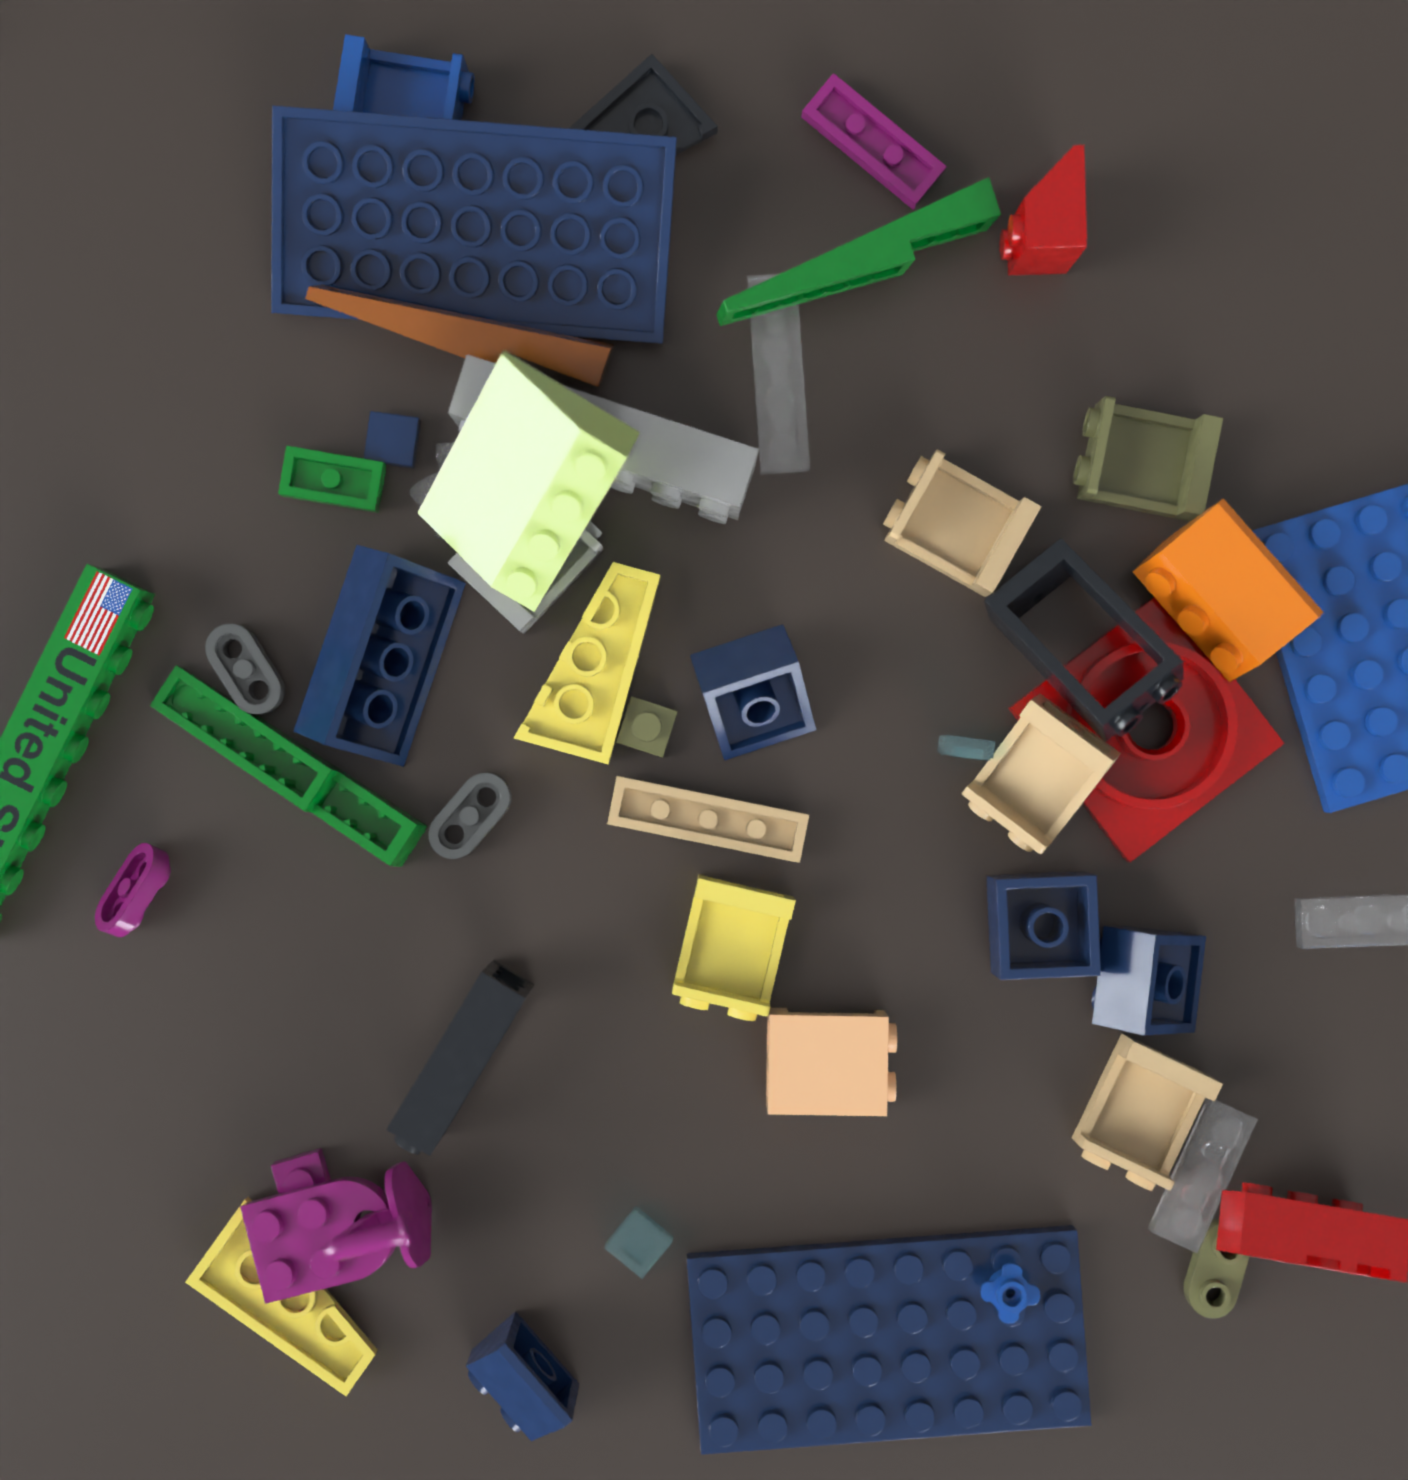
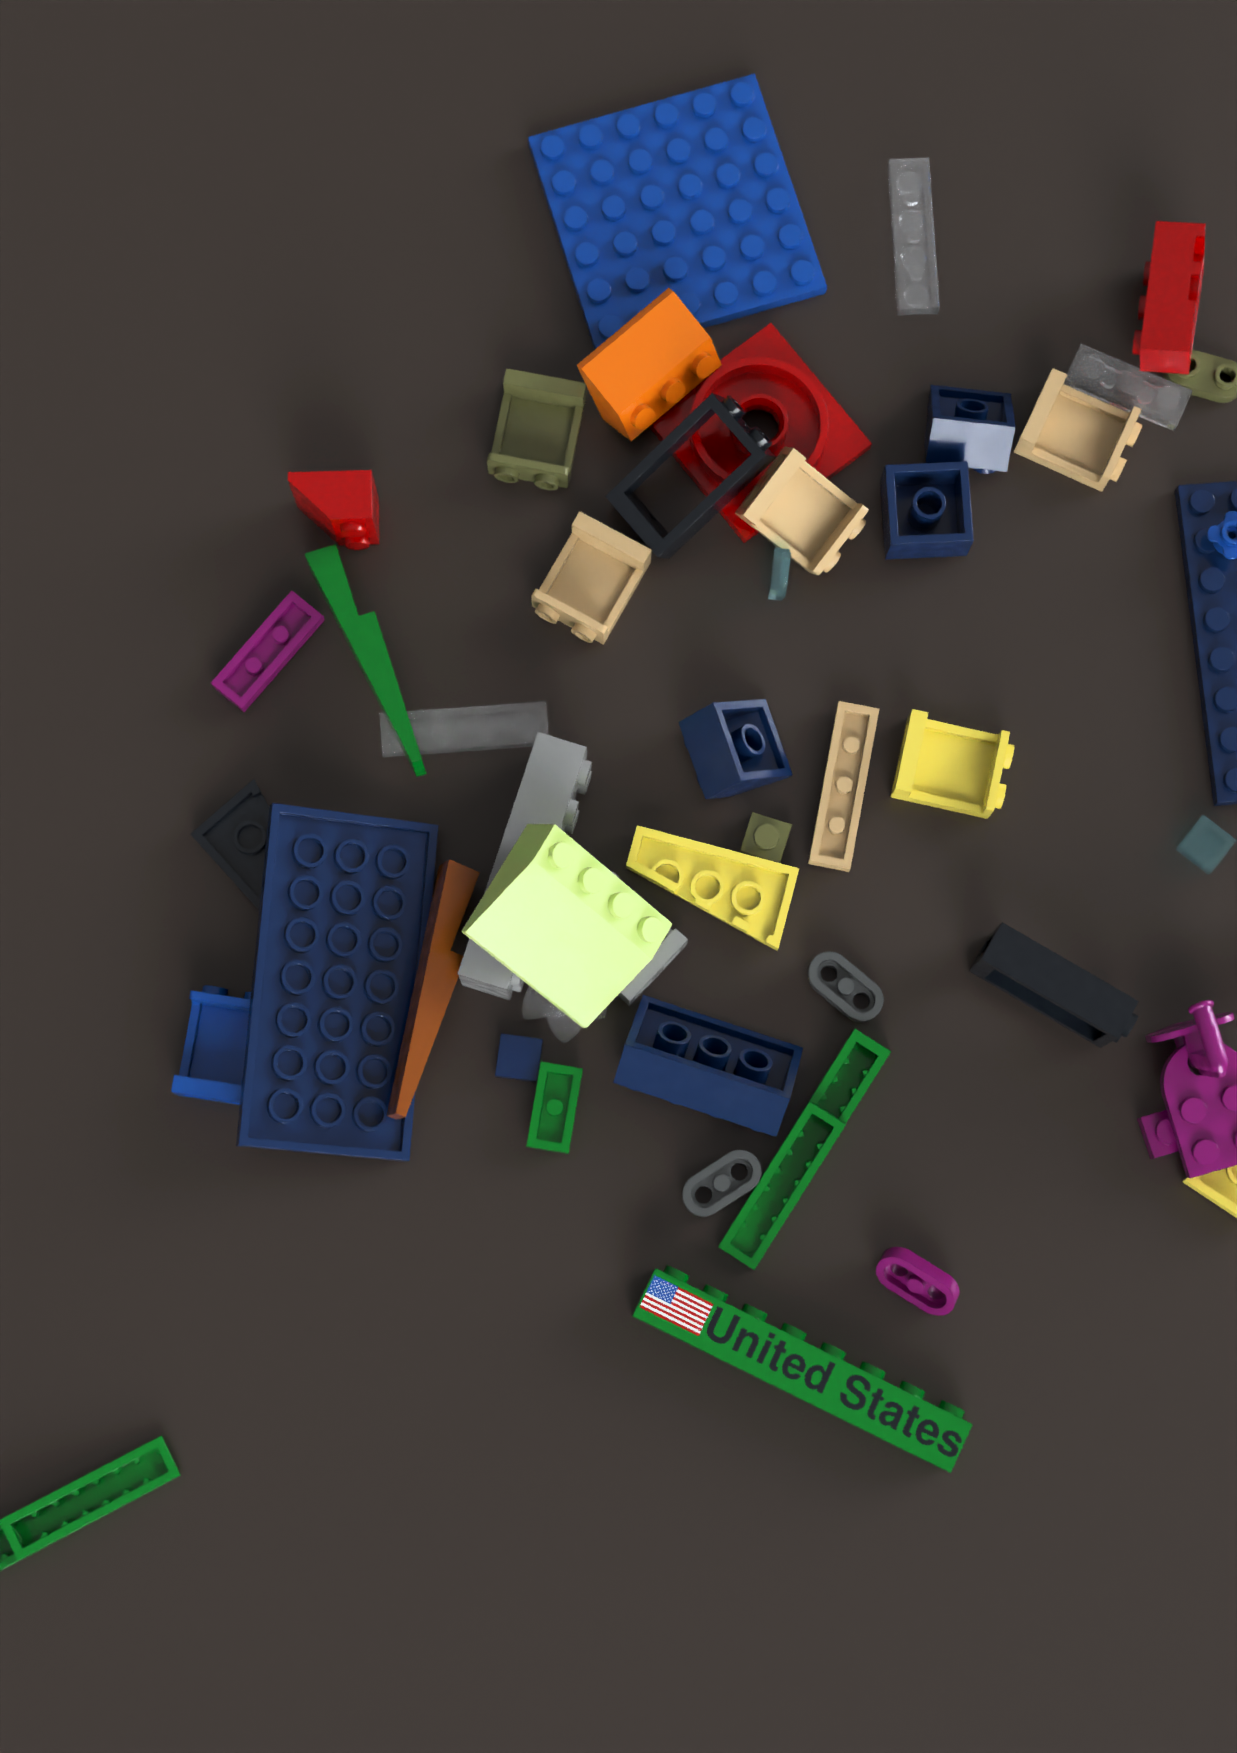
camera: 90 degrees left, 10 degrees down
(829, 1063) = (1047, 685): light nougat panel -> none

